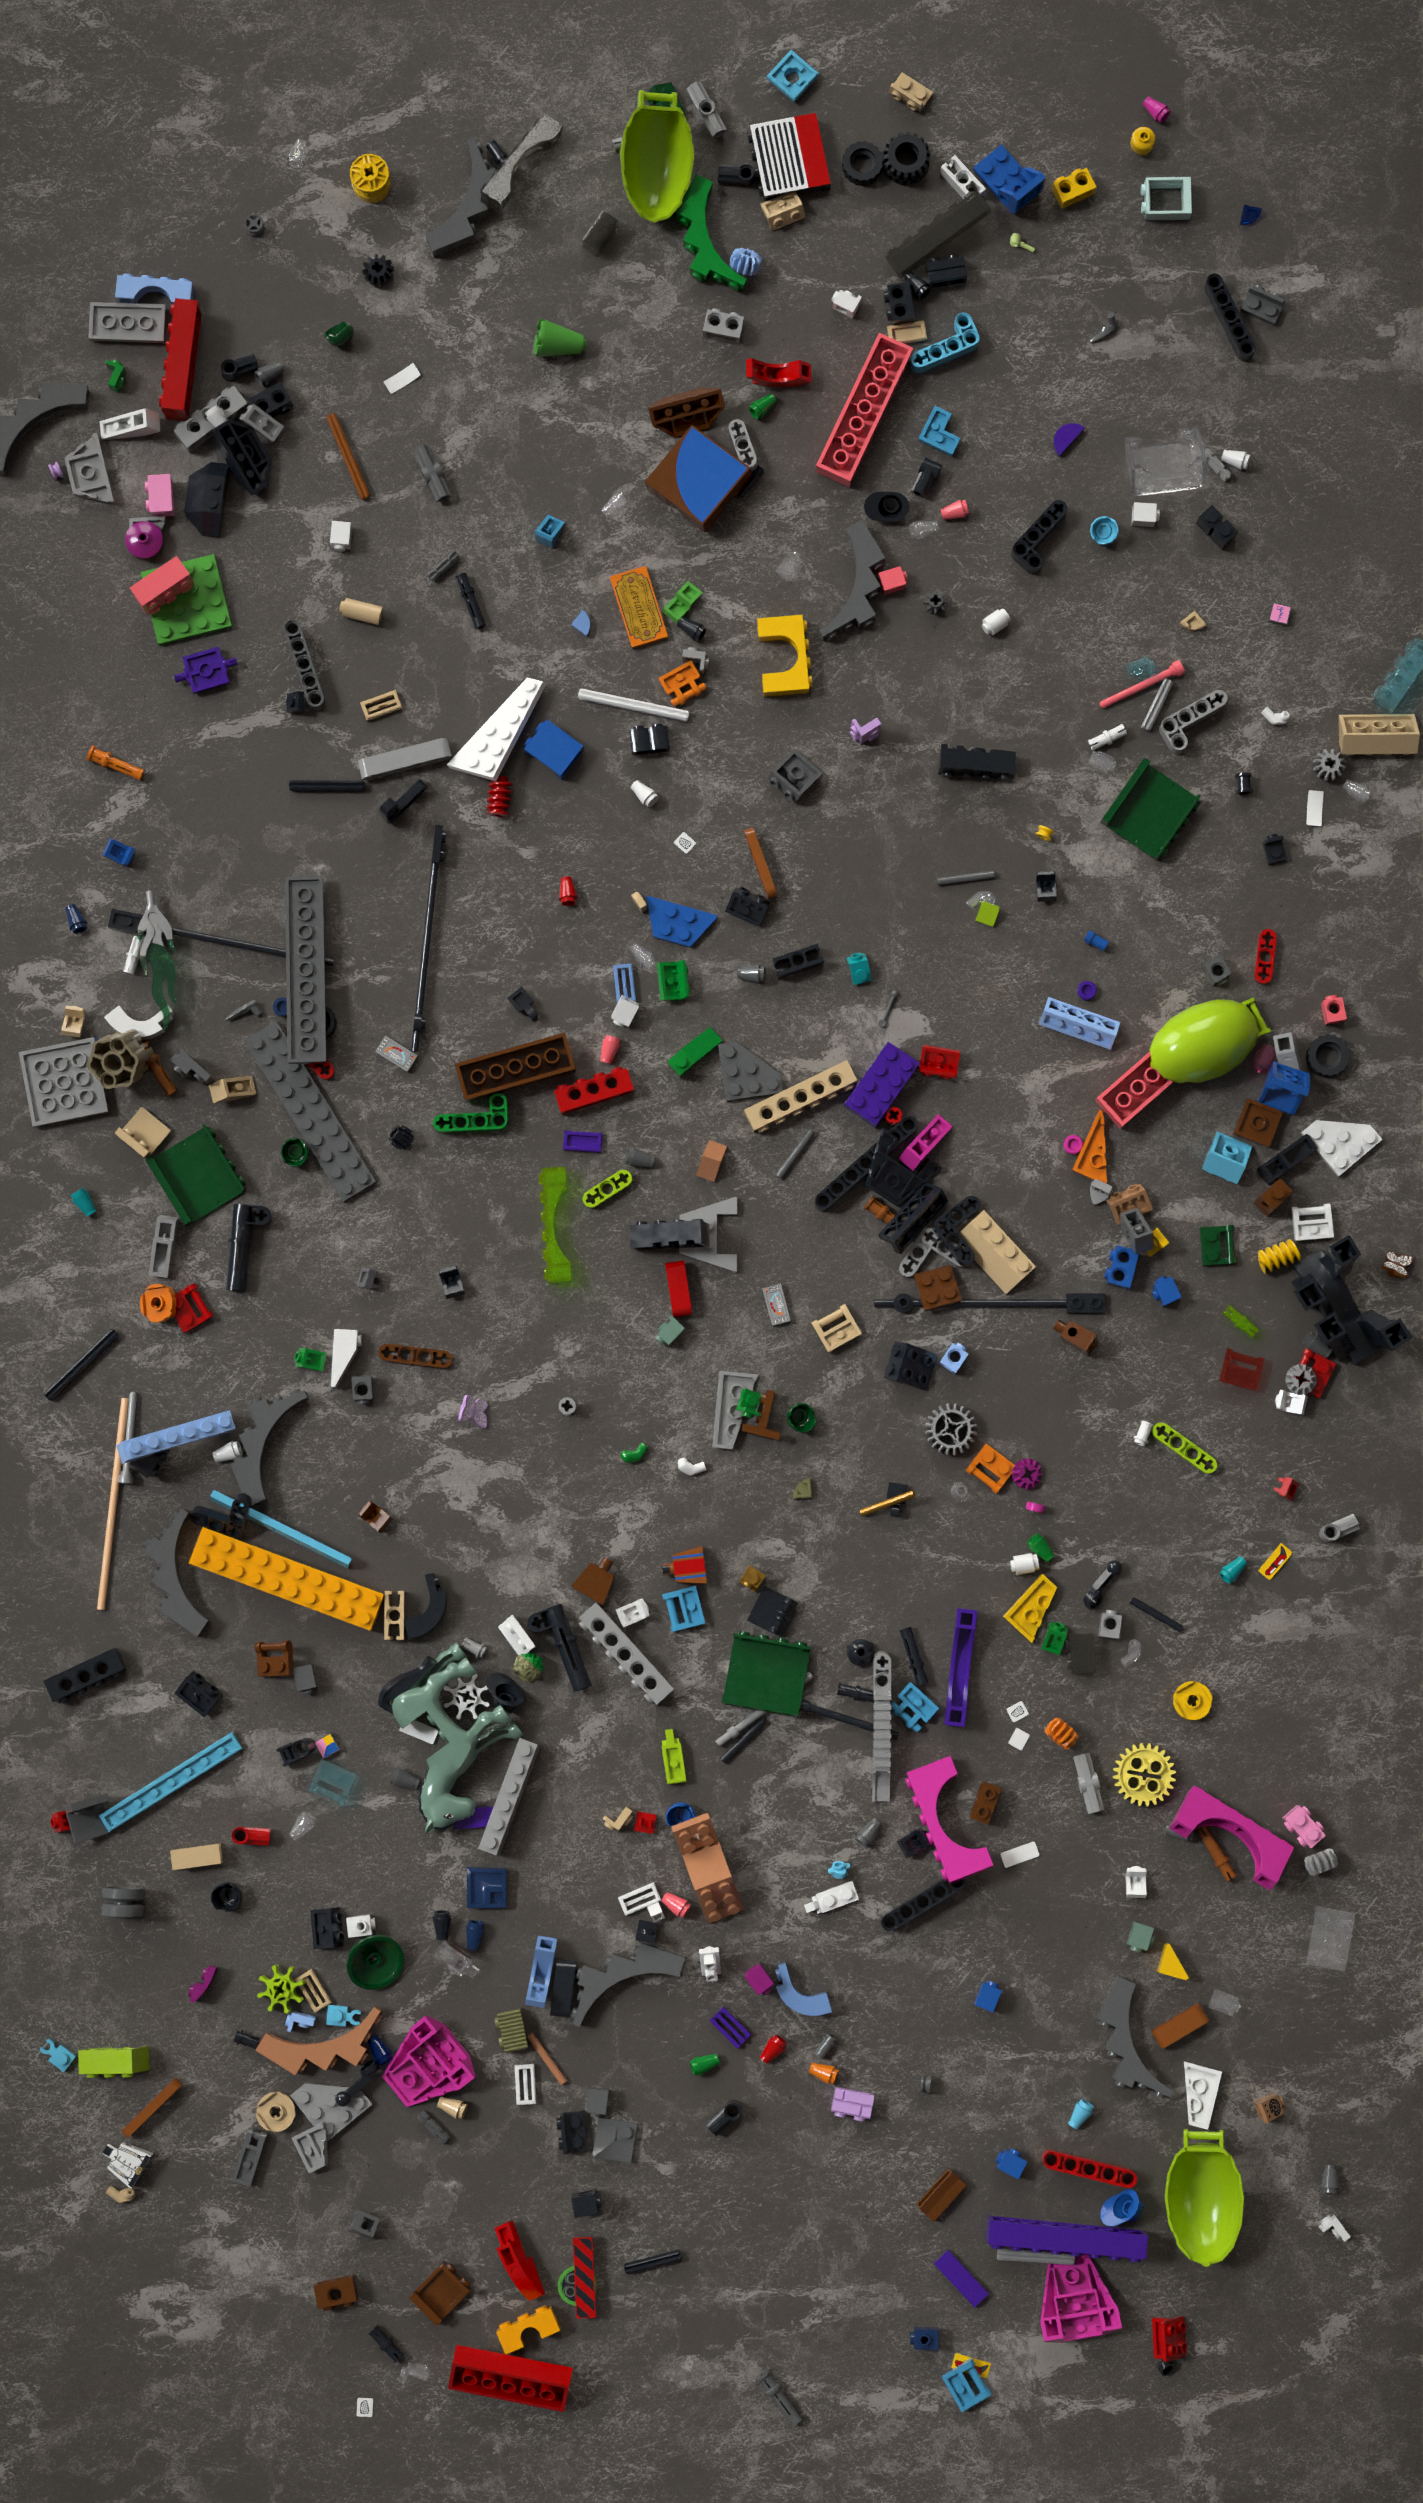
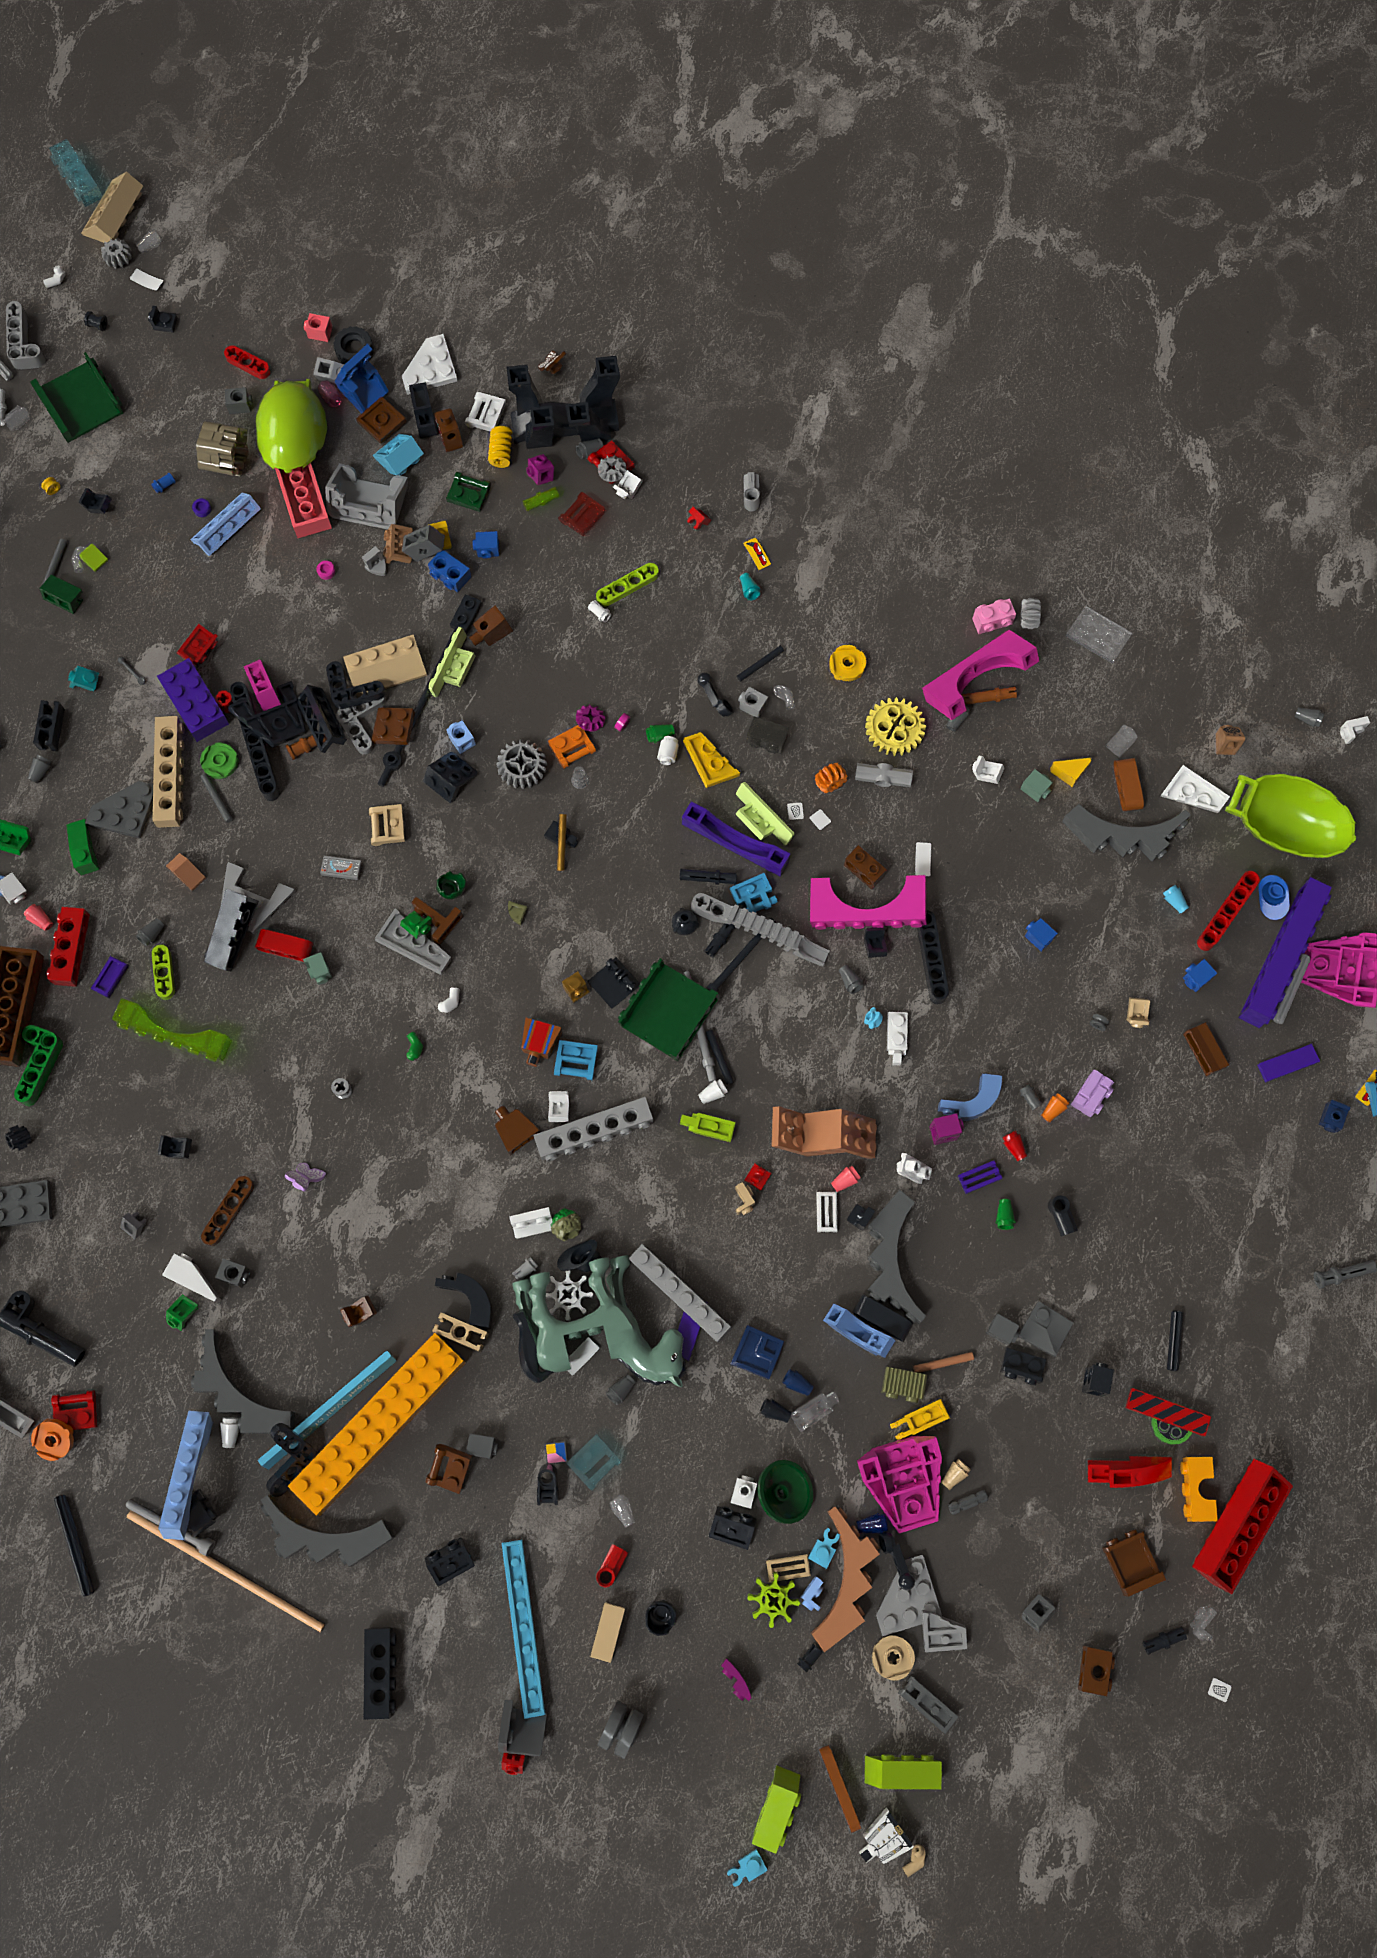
camera: 65 degrees left, 10 degrees down
(186, 2156) = (903, 1772): none -> lime wedge
(488, 2058) = (922, 1419): none -> yellow hinge
(533, 2085) = (943, 1388): white tile -> none
(557, 1620) = (536, 1180): black piece -> none
(656, 1912) = (845, 1200): white piece -> none
(679, 1813) = (762, 1140): blue hair -> none
(706, 1748) = (713, 1091): none -> white cone
(833, 1138) = (219, 760): none -> bright green tile
(936, 903) = (61, 594): none -> dark green hinge
(950, 2118) = (1138, 1012): none -> tan bracket
(993, 1681) = (761, 817): none -> yellowish green bracket
(1025, 1318) = (453, 665): none -> yellowish green bracket
(1055, 1638) = (744, 752): green bracket -> none
(1092, 1159) = (345, 559): orange wing -> none
(1151, 985) = (219, 448): none -> dark tan piece
(1164, 1149) = (364, 500): none -> light grey windscreen
(1269, 1308) = (540, 469): none -> magenta brick

